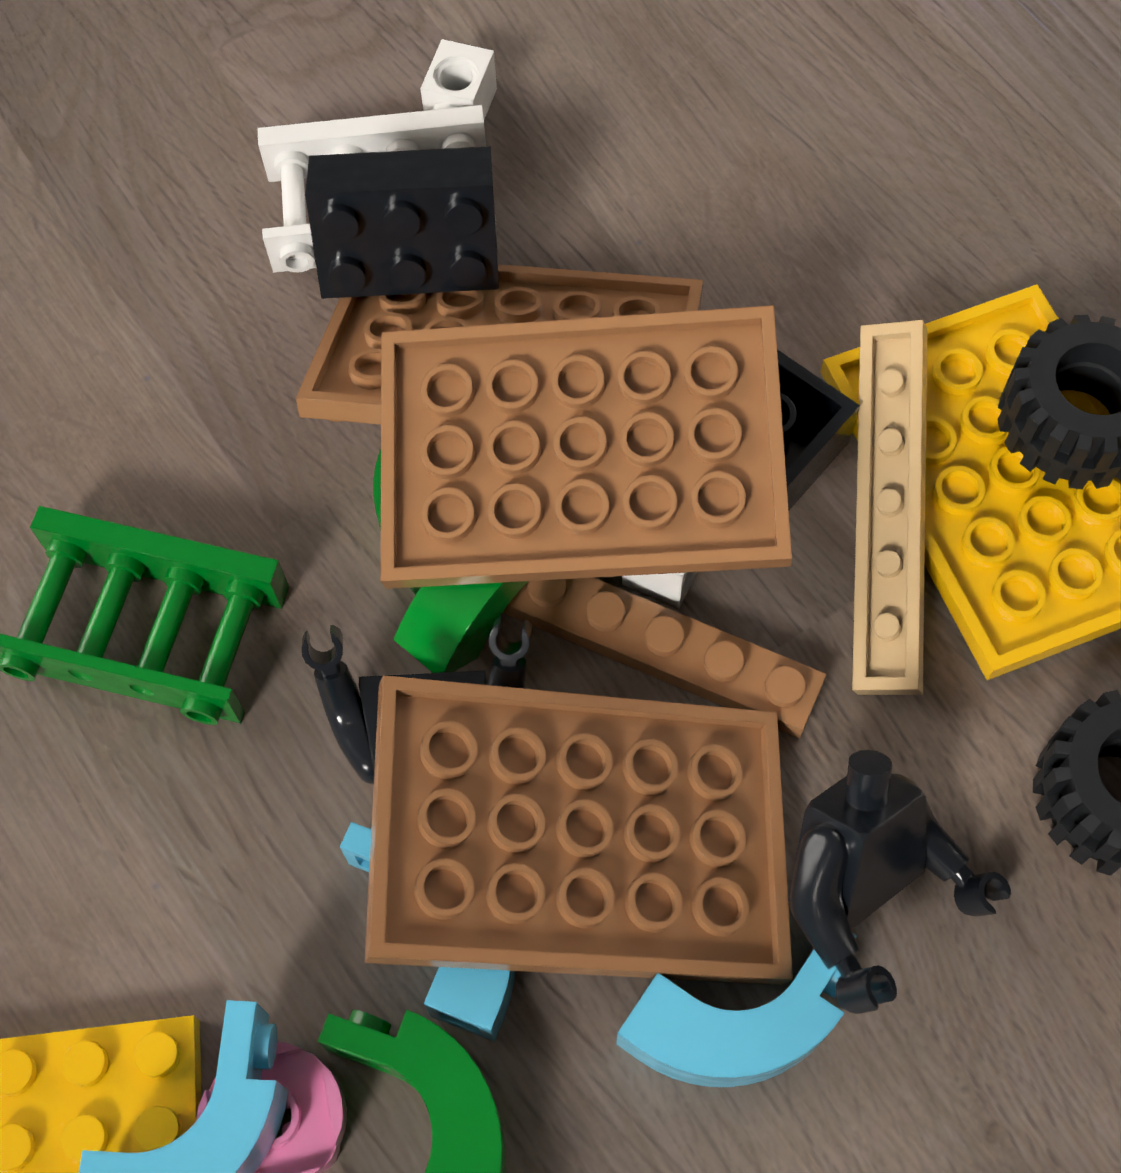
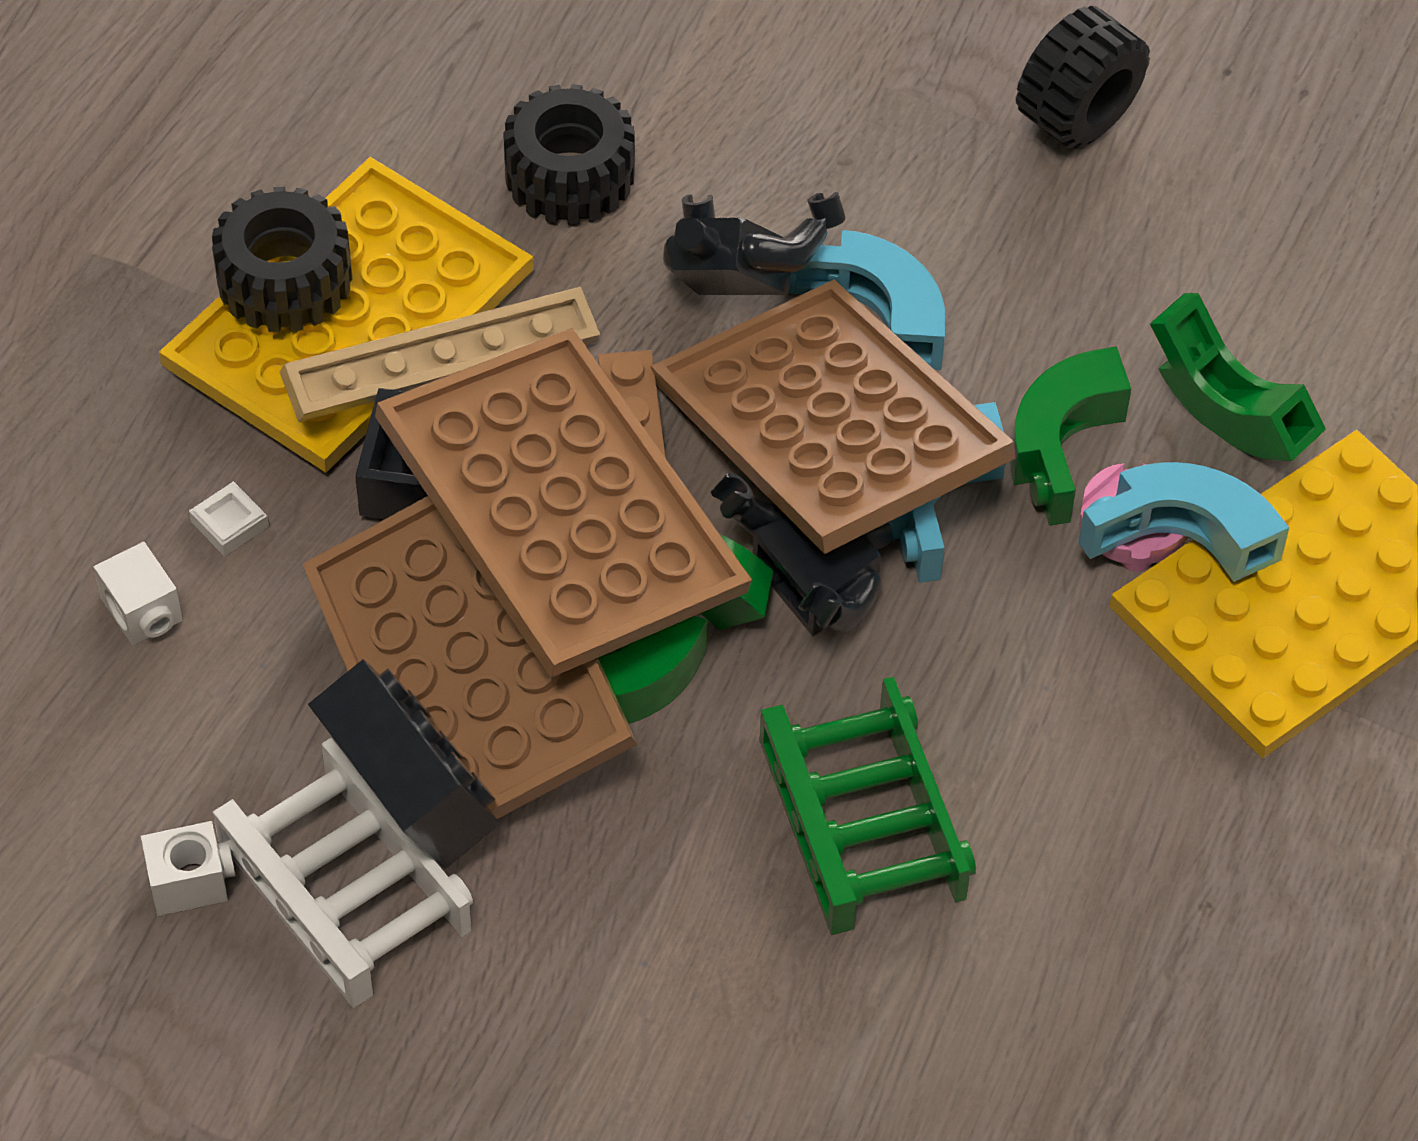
camera: 125 degrees left, 10 degrees down
(757, 164) = (138, 593): none -> white brick
(812, 276) = (228, 518): none -> white tile

